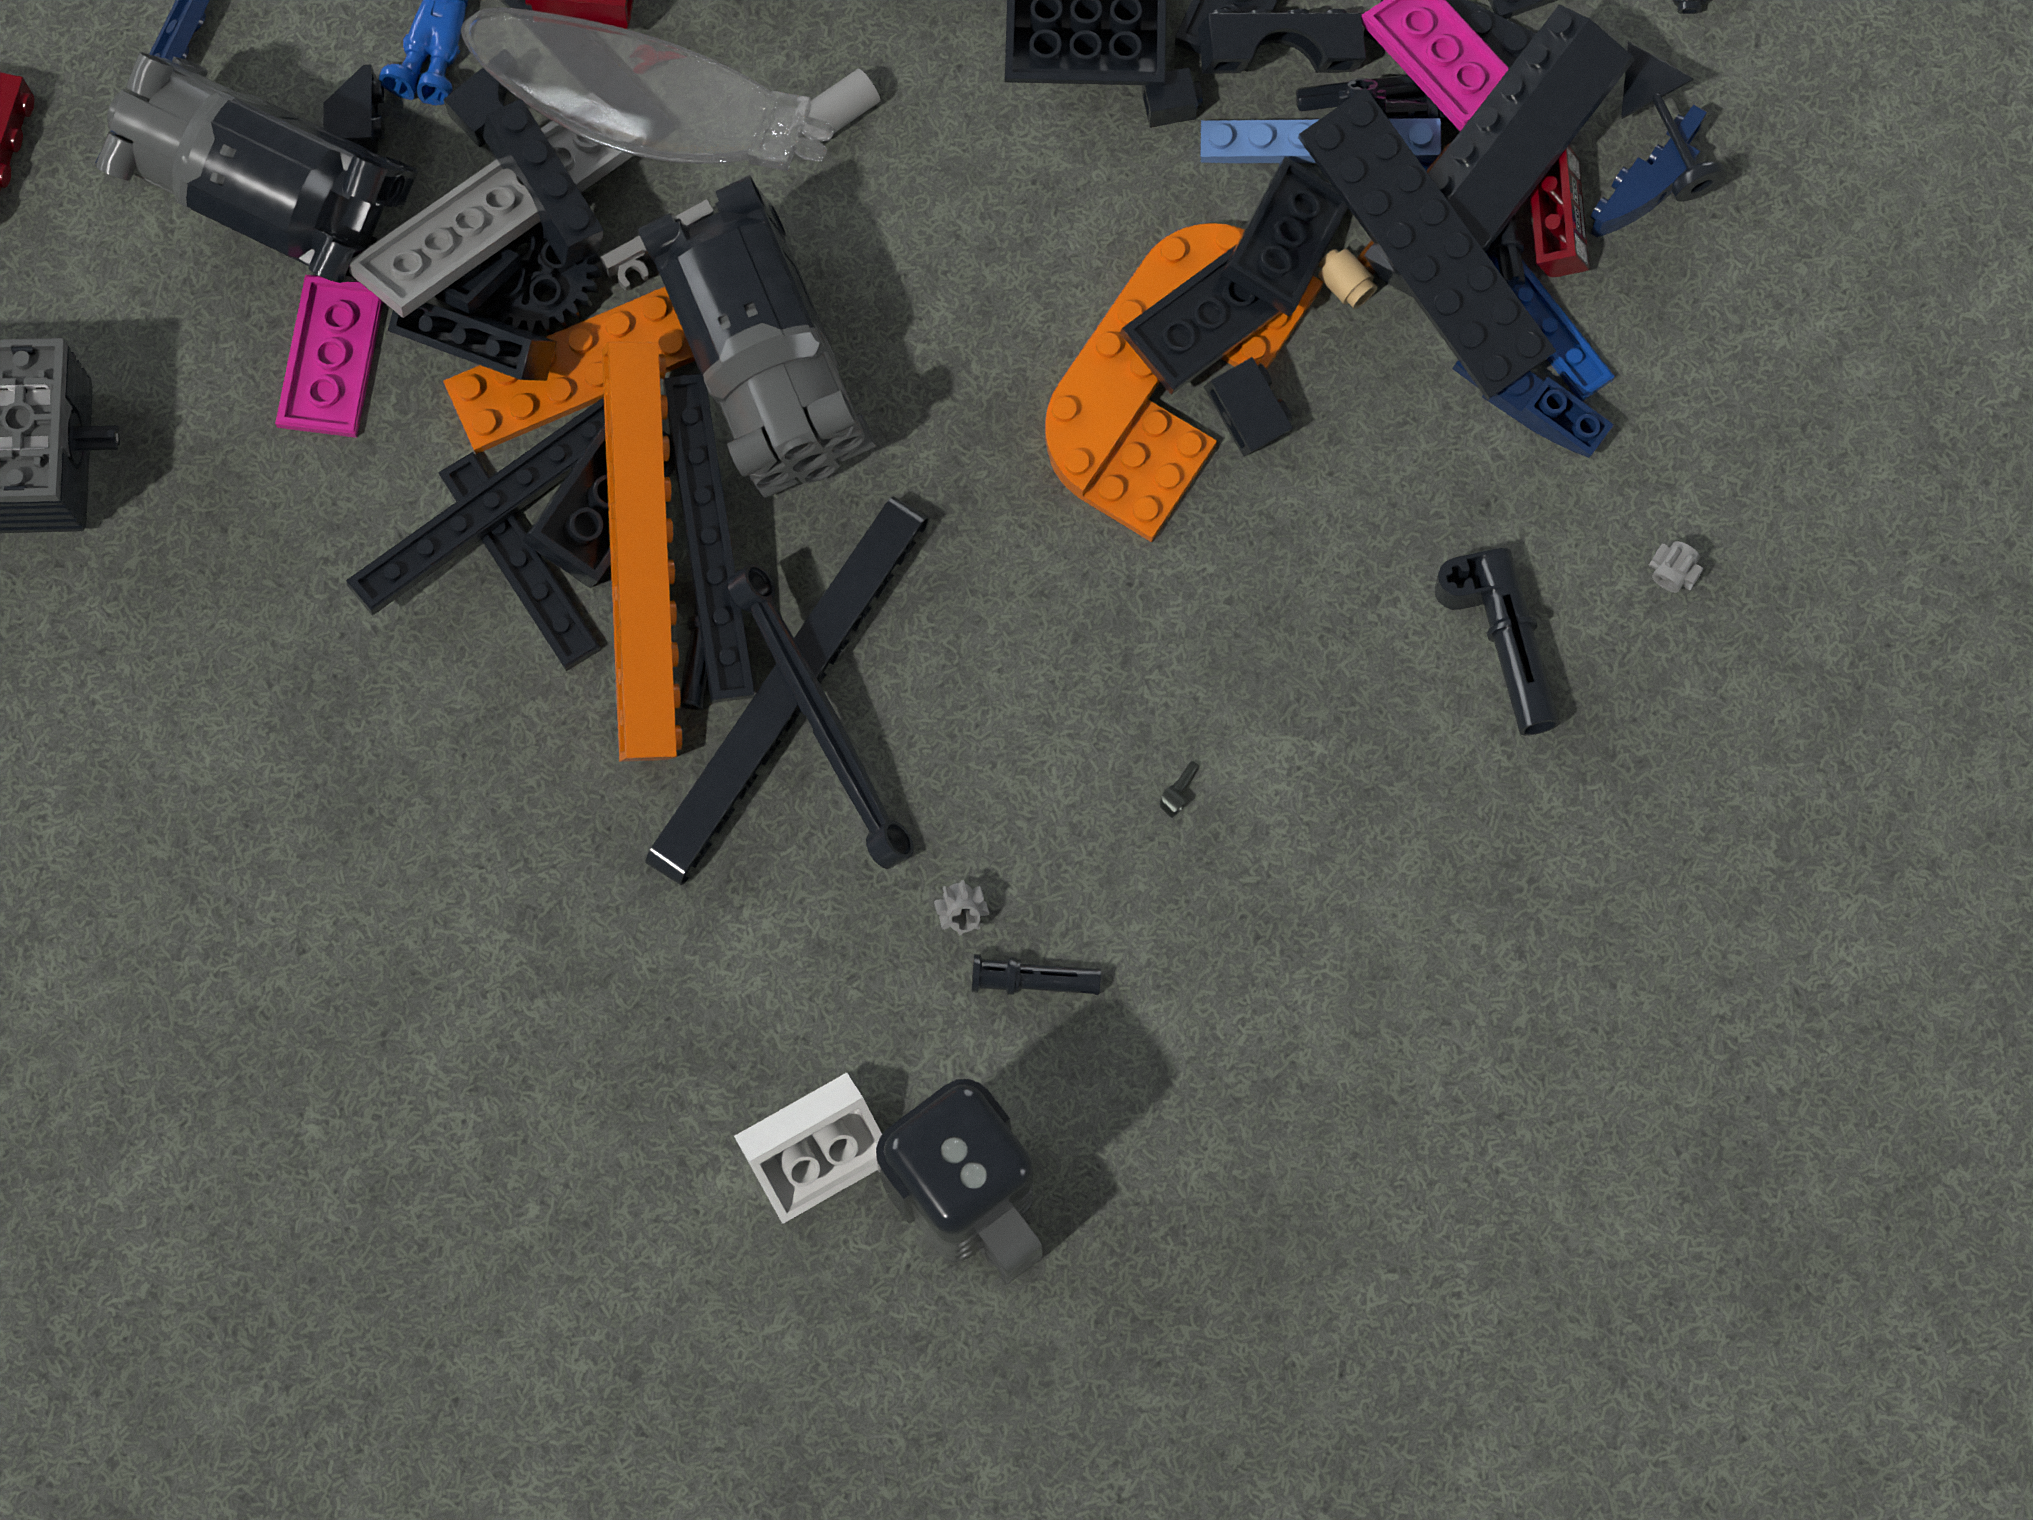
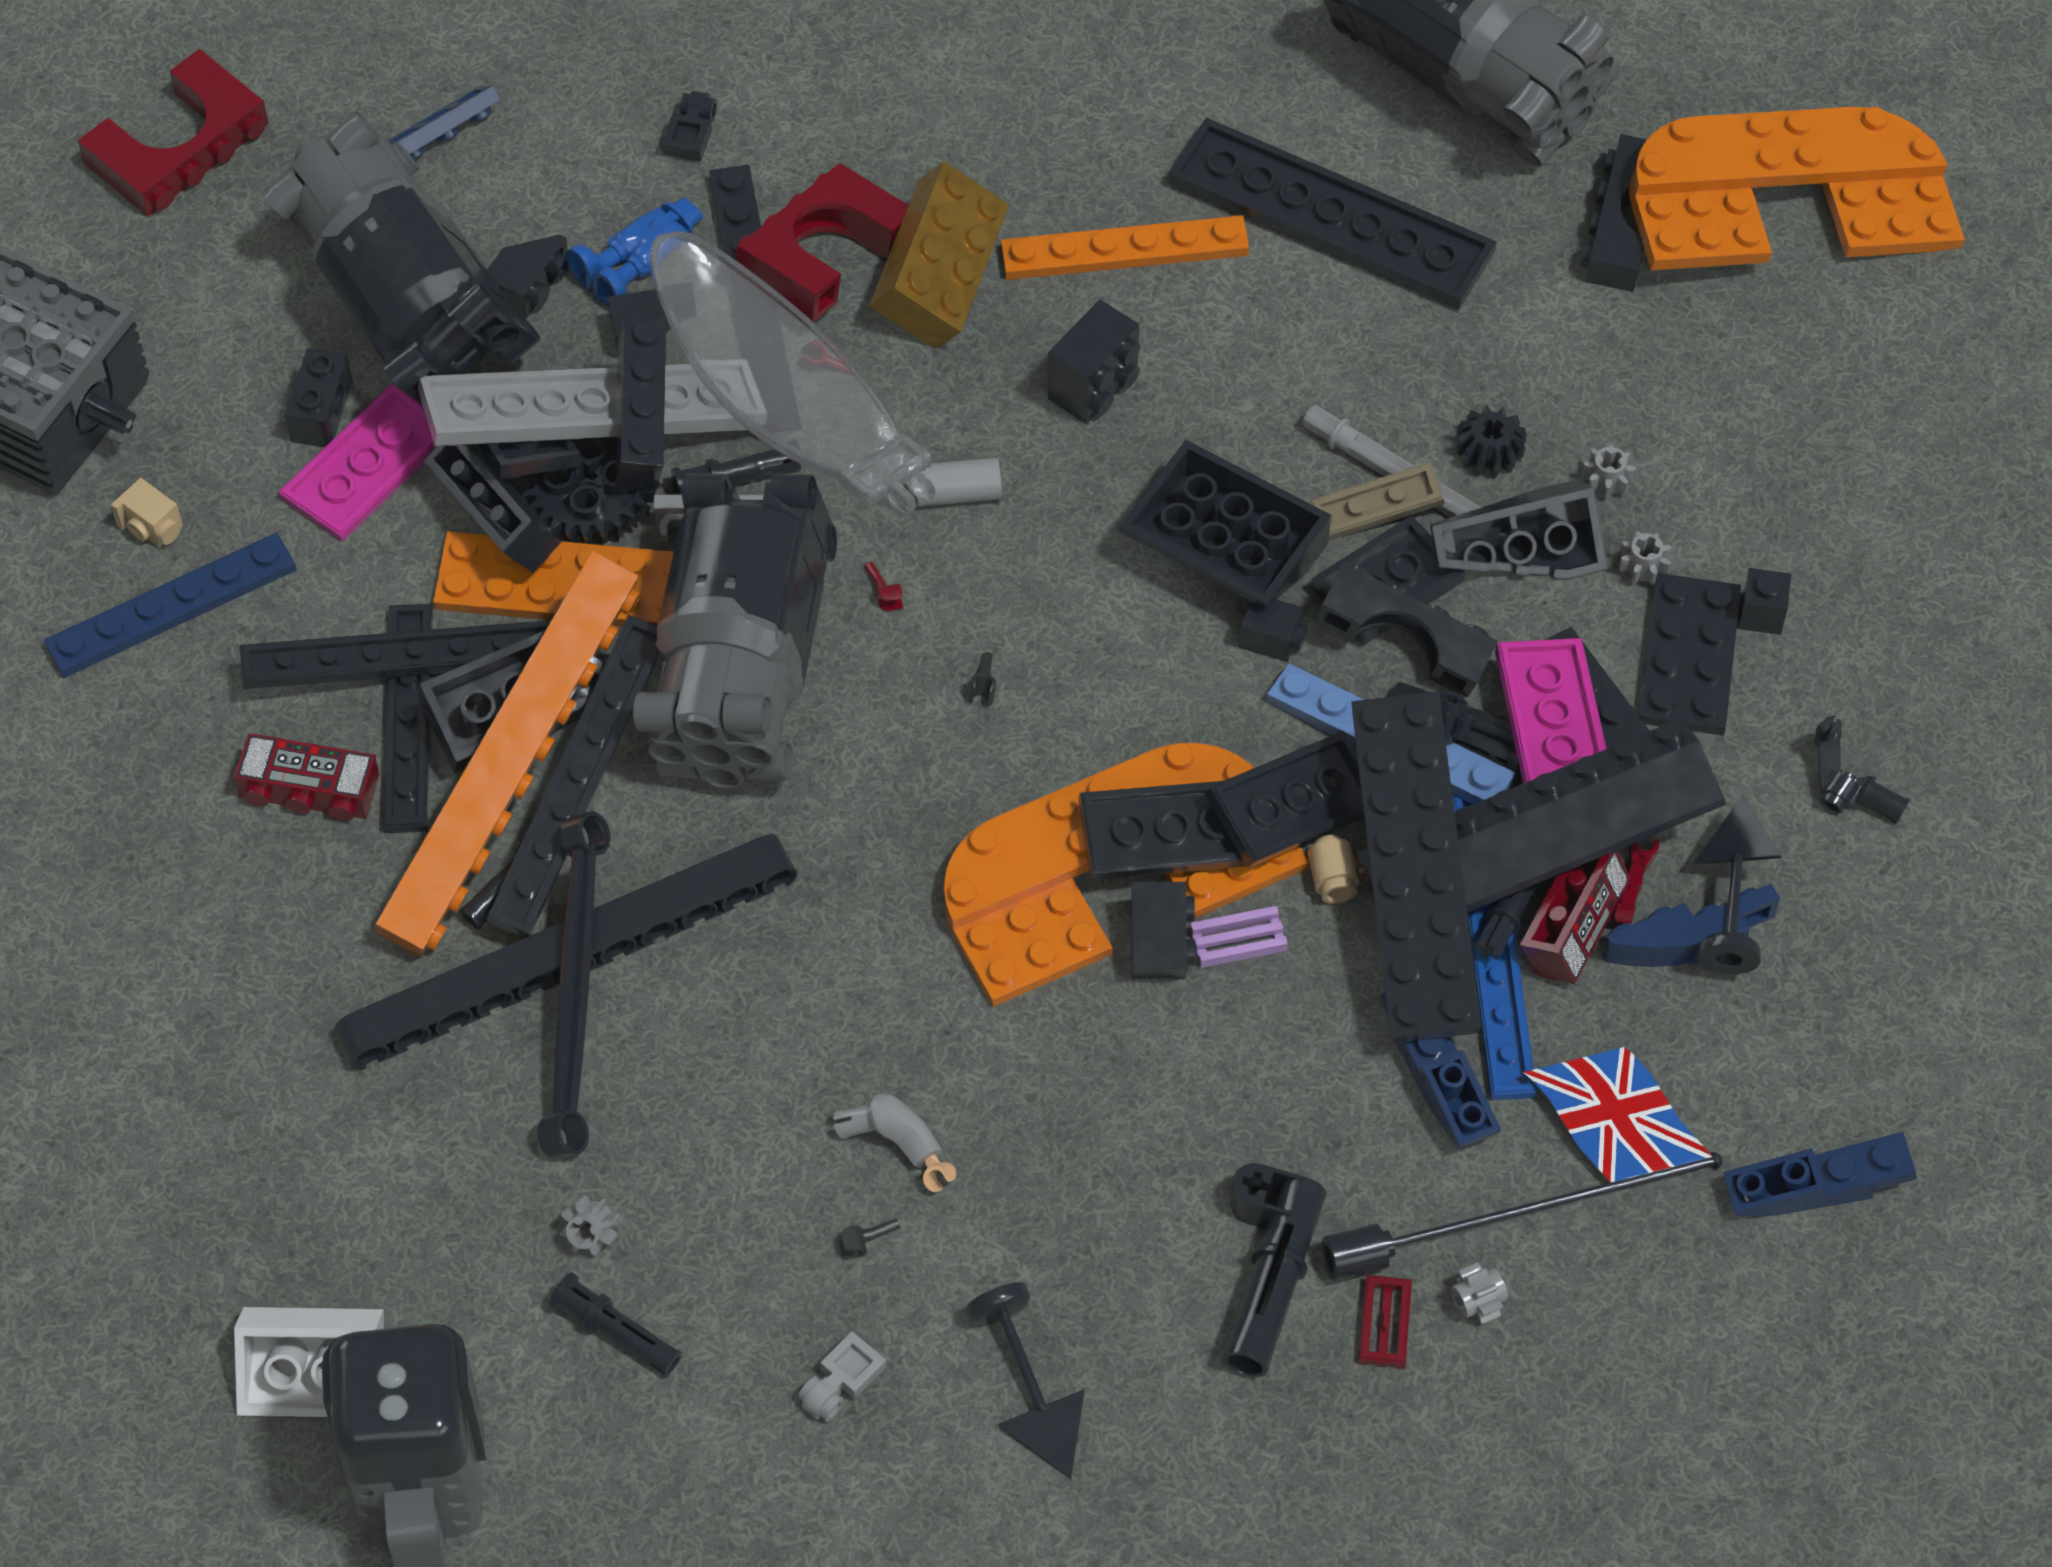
camera: 30 degrees right, 15 degrees down
(180, 505) = (147, 514): none -> tan brick
(251, 574) = (170, 605): none -> dark blue plate
(255, 322) = (318, 397): none -> black brick
(474, 661) = (306, 777): none -> brick
(635, 209) = (740, 469): none -> black pin
(843, 238) = (888, 595): none -> dark red hand
(969, 270) = (983, 682): none -> pearl dark grey hand
(1152, 684) = (903, 1126): none -> light grey arm
(1238, 904) = (848, 1367): none -> light grey plate
(1330, 352) = (1236, 921): none -> lavender tile
(1418, 863) = (1051, 1427): none -> black piece
(1590, 188) = (1639, 863): none -> dark red piece
(1599, 632) = (1382, 1357): none -> dark red tile
(1688, 368) = (1612, 1118): none -> flag
(1869, 325) = (1820, 1180): none -> dark blue slope

